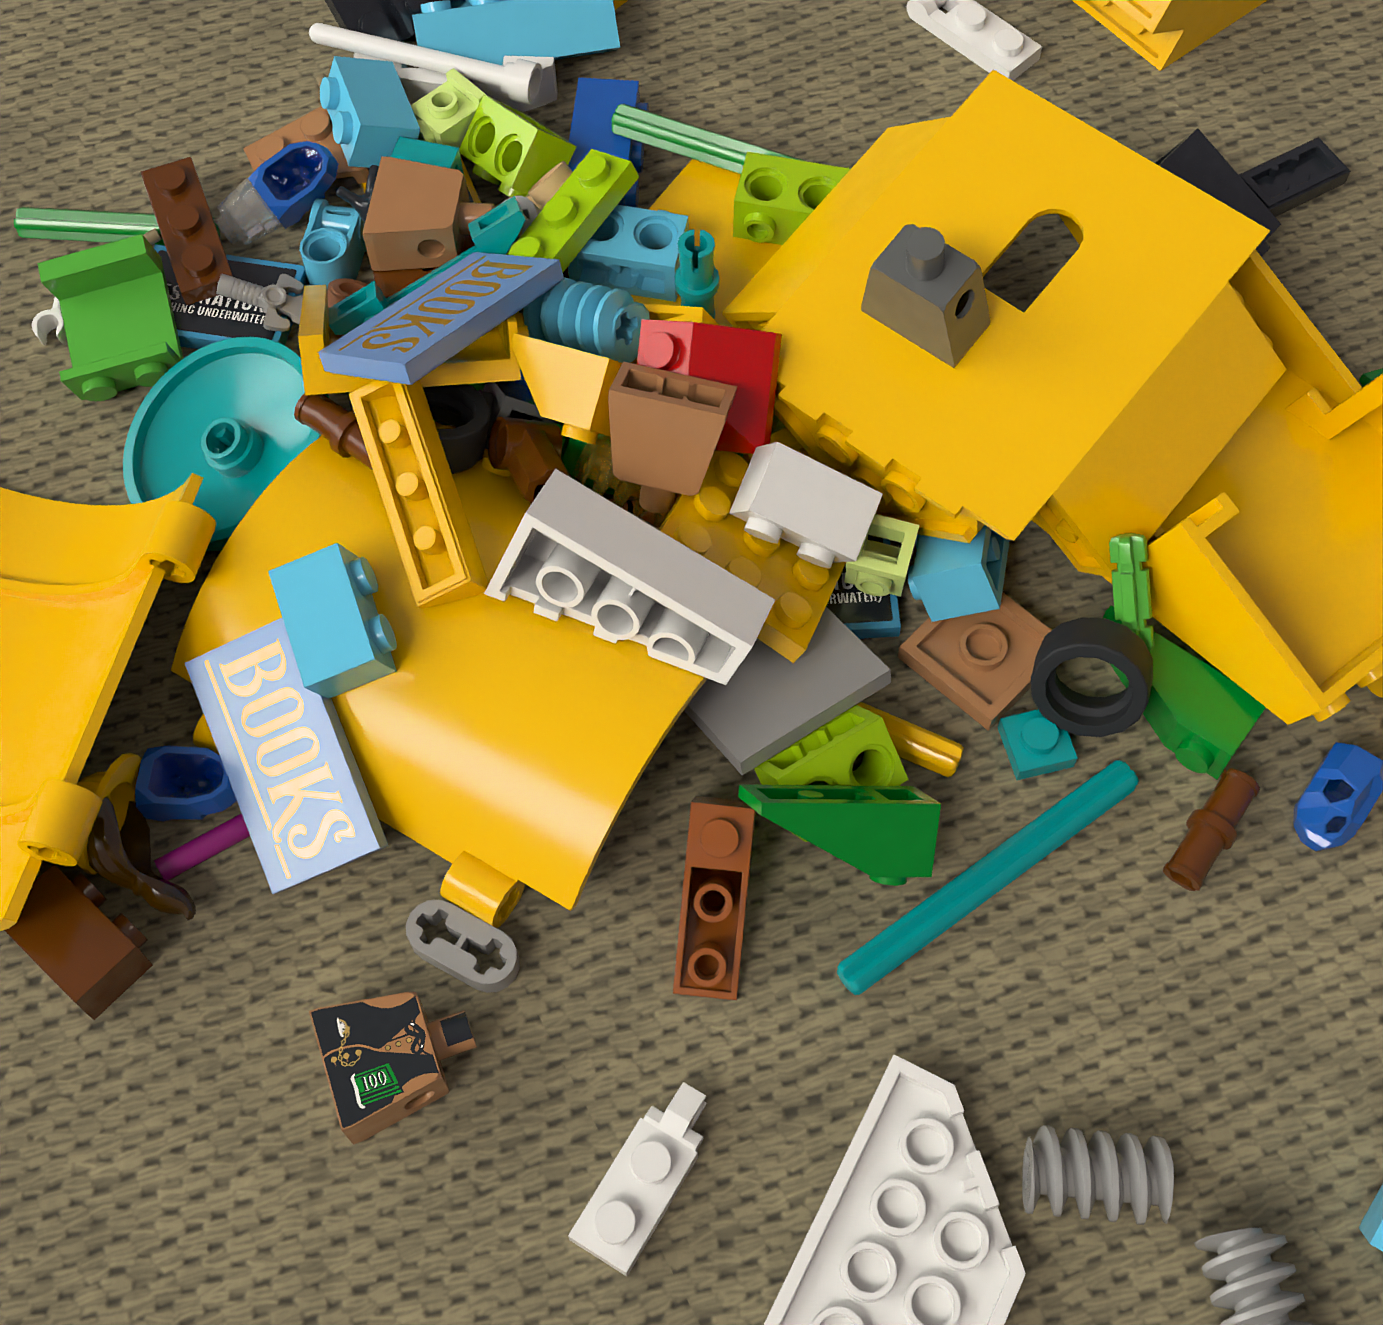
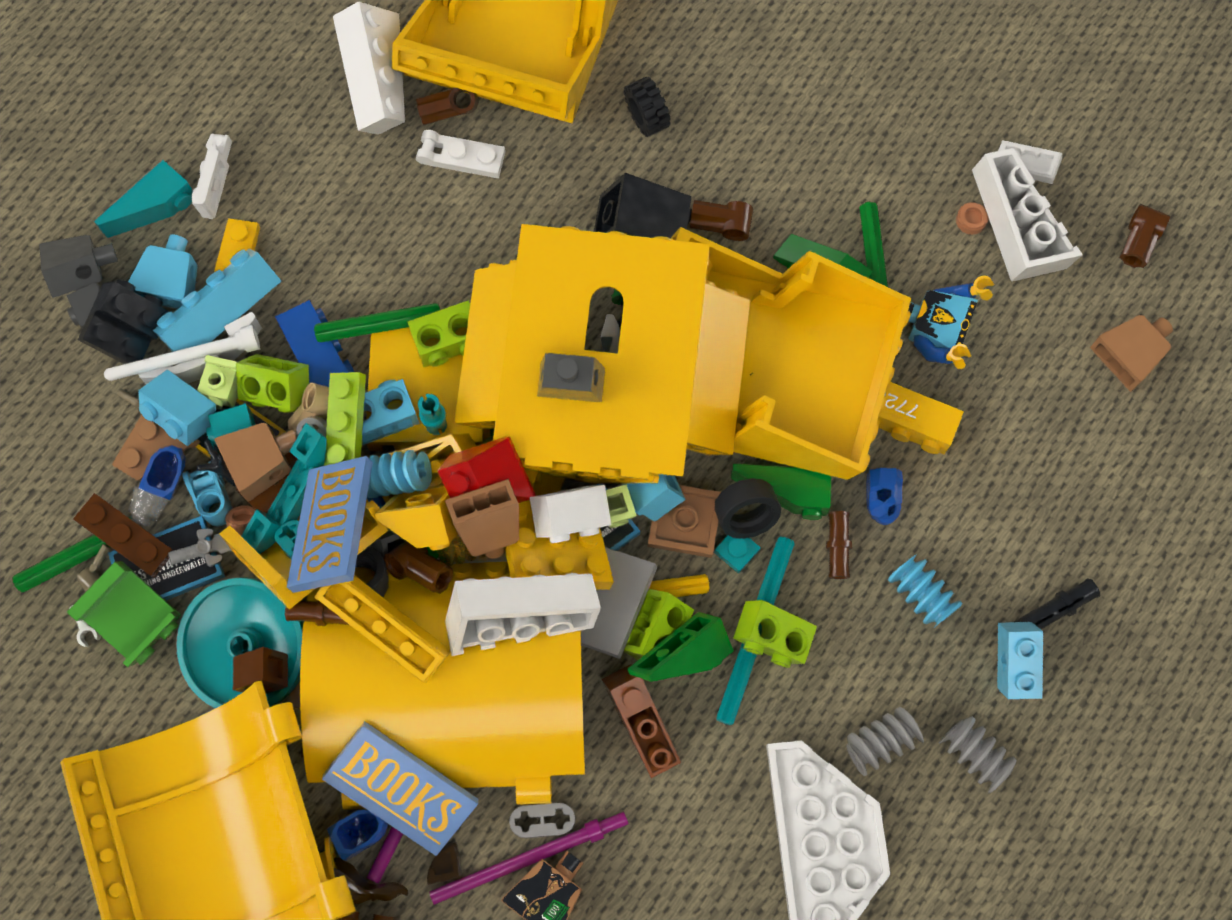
camera: 35 degrees left, 10 degrees up
(230, 478) = (260, 665): none -> reddish brown brick
(276, 919) = (445, 865): none -> dark brown tile
(334, 620) = (390, 716): medium azure brick -> none
(525, 1011) = (591, 832): none -> magenta bar
(641, 1182) = (695, 872): white hinge -> none
(1028, 877) = (776, 627): none -> lime brick
(1132, 584) = (742, 456): bright green axle -> none
(1287, 84) = (647, 106): none -> black tyre
(1296, 176) = (677, 159): black plate -> none
(1315, 982) = (924, 591): none -> medium azure piece
(1321, 291) = (730, 219): none -> reddish brown piece

